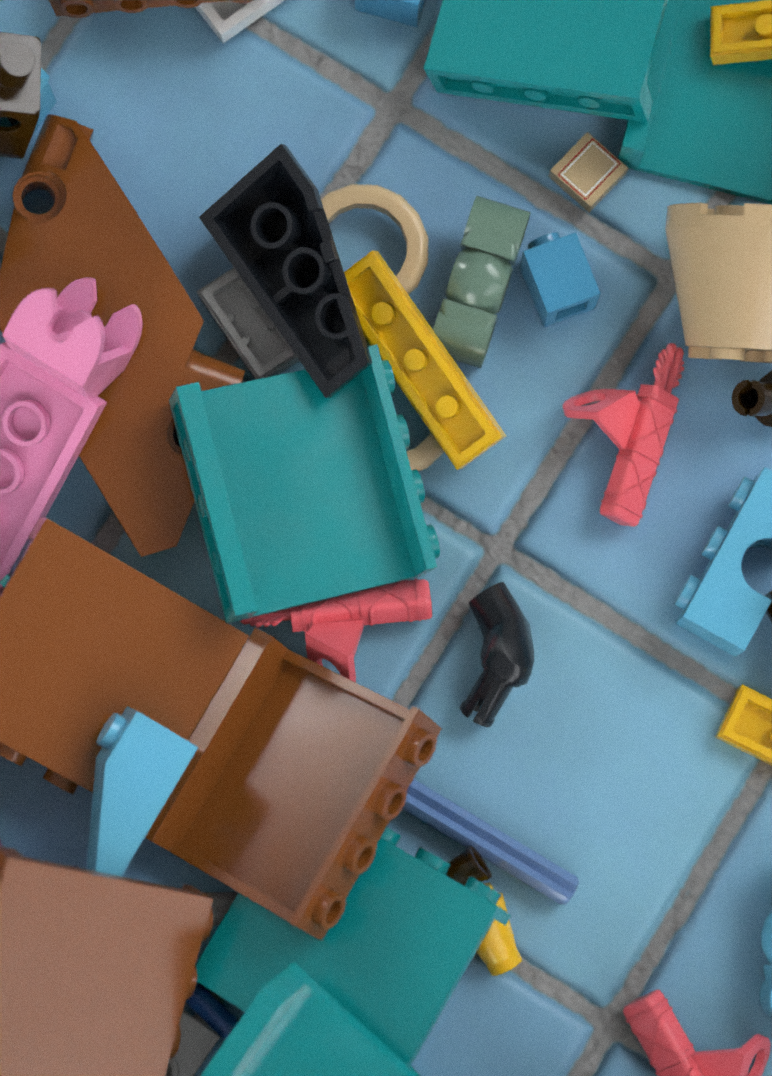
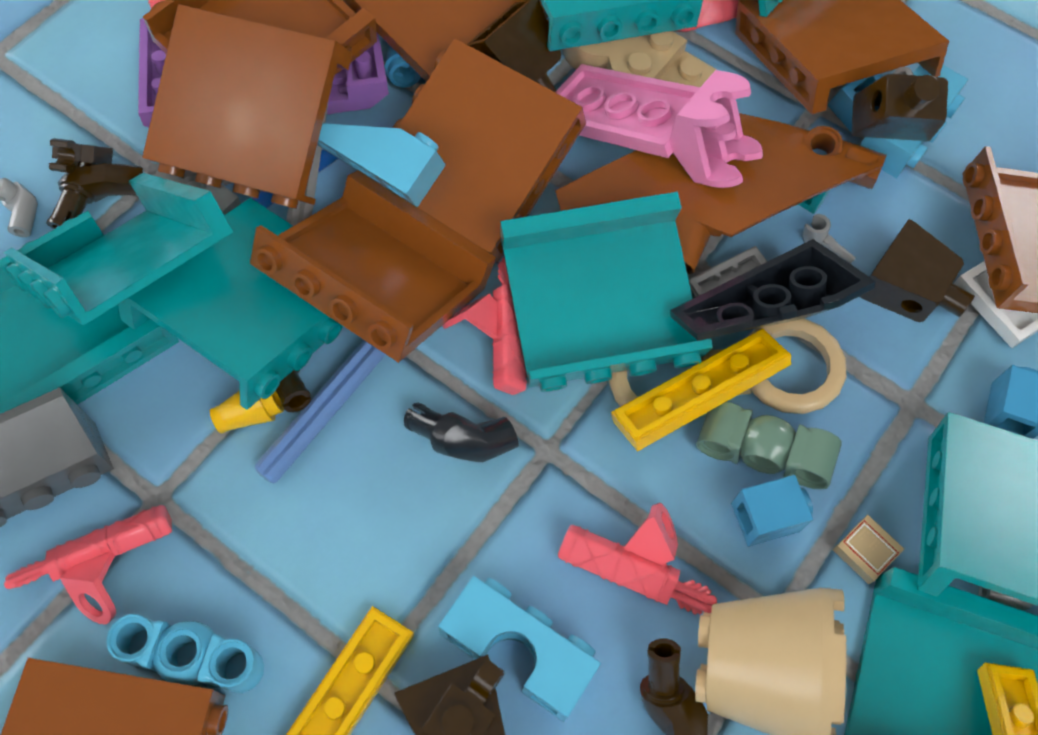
camera: 90 degrees right, 15 degrees down
(170, 198) = (819, 233): none -> light grey hand
(223, 90) = (918, 276): none -> dark brown torso

